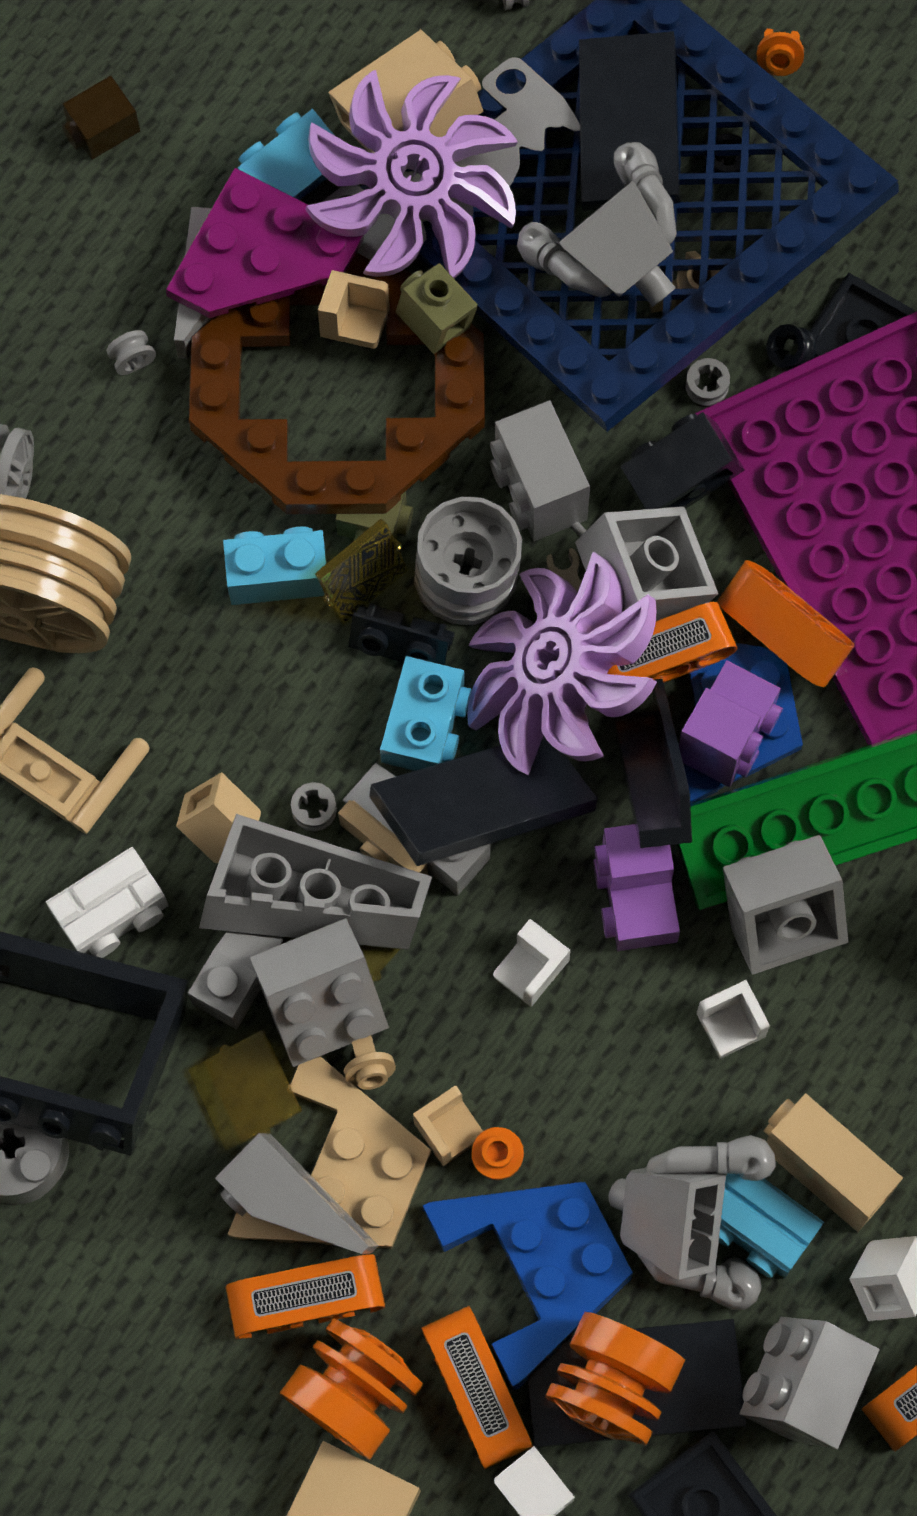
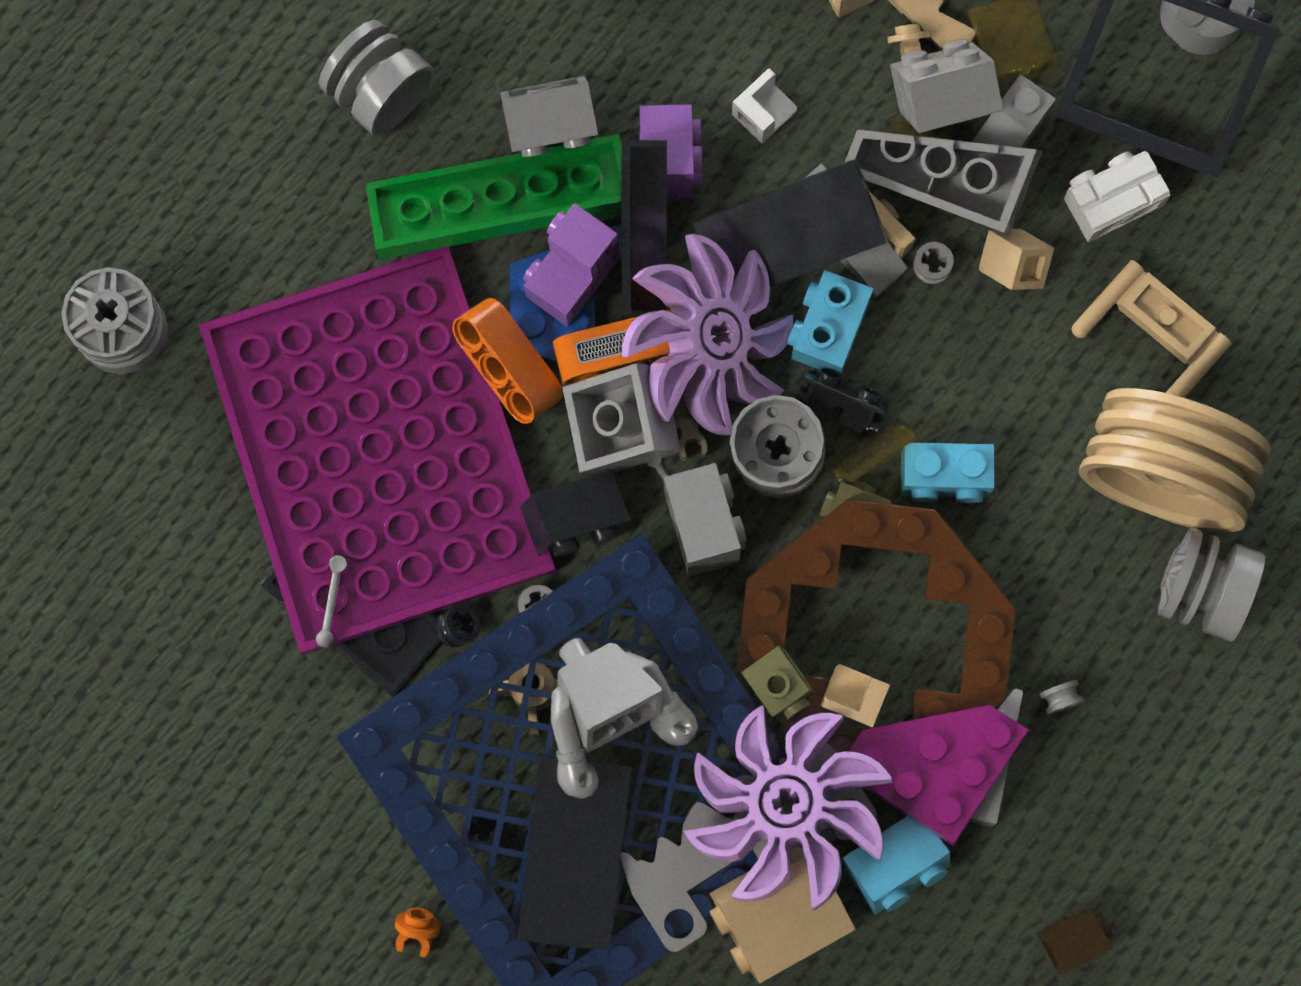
camera: 170 degrees left, 5 degrees up
(733, 1019) = (605, 43): white panel -> none

